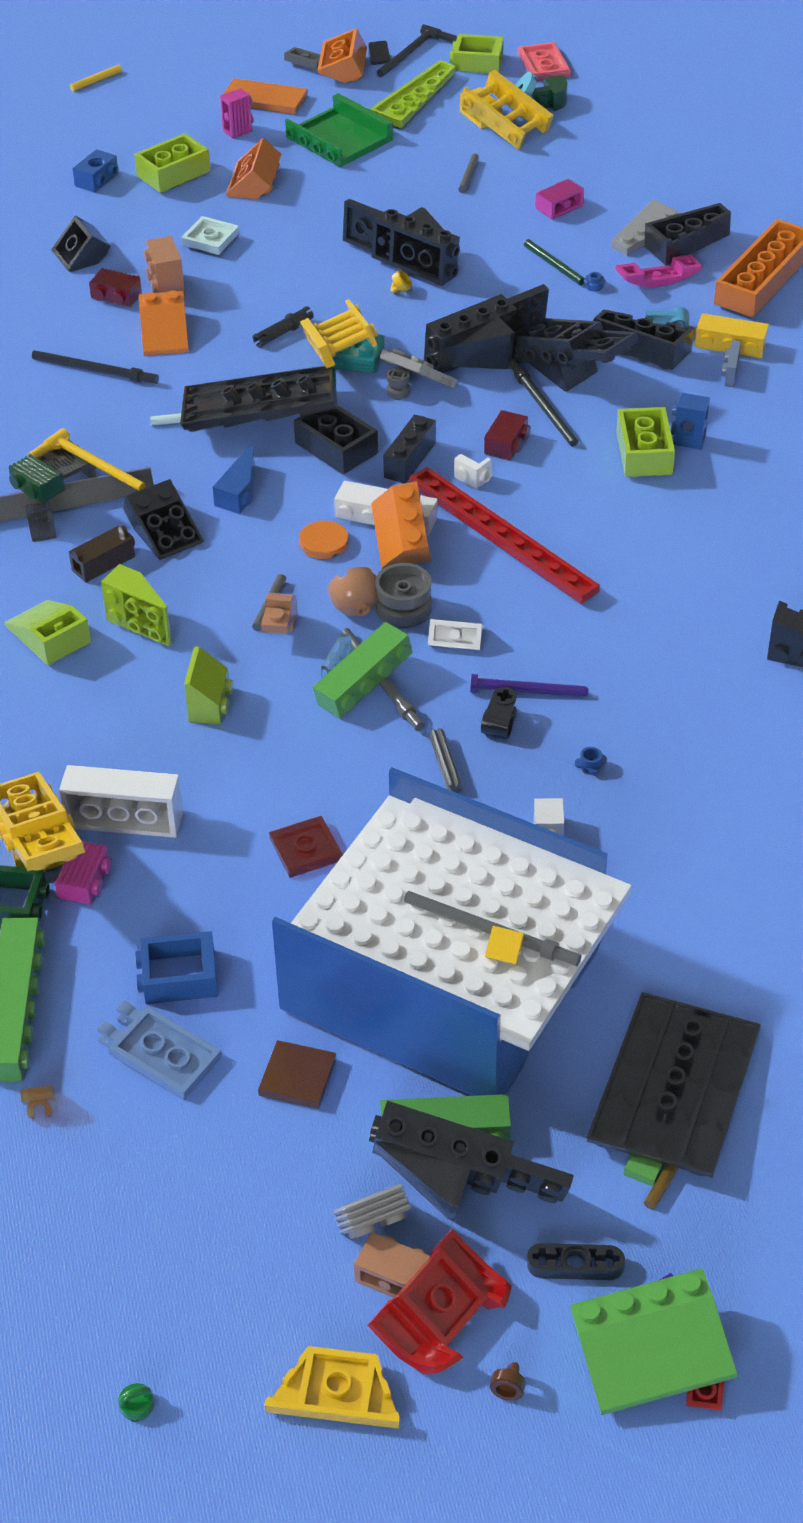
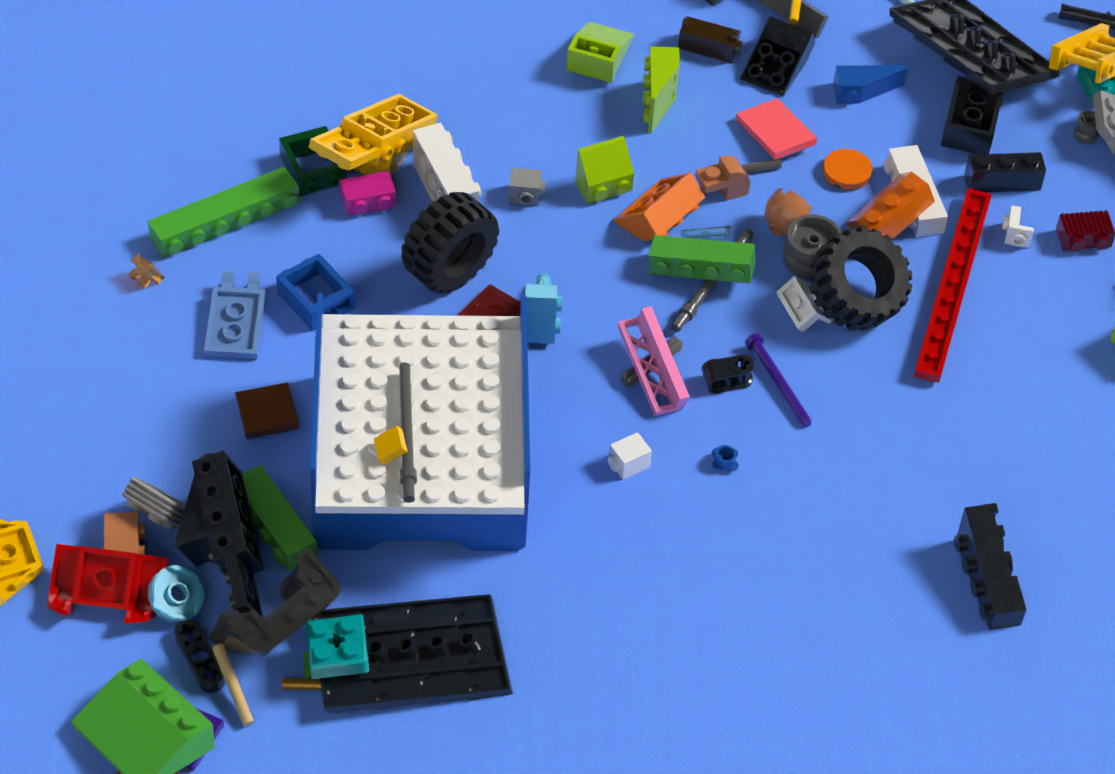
camera: 55 degrees right, 5 degrees up
(172, 753) = (526, 186): none -> light grey brick
(224, 823) = (450, 242): none -> black tyre
(243, 560) = (776, 129): none -> coral tile
(273, 673) = (661, 207): none -> orange slope
(340, 799) = (541, 310): none -> medium azure brick
(458, 748) = (662, 359): none -> bright pink fence
(475, 575) = (884, 263): none -> black tyre
(479, 1242) = (162, 601): none -> medium azure tile
(508, 1382) = (65, 654): reddish brown tile -> none
(587, 1140) = (305, 593): none -> clear smoke windscreen
(635, 1244) = (233, 685): none -> tan bar
(658, 1145) = (339, 631): none -> teal brick

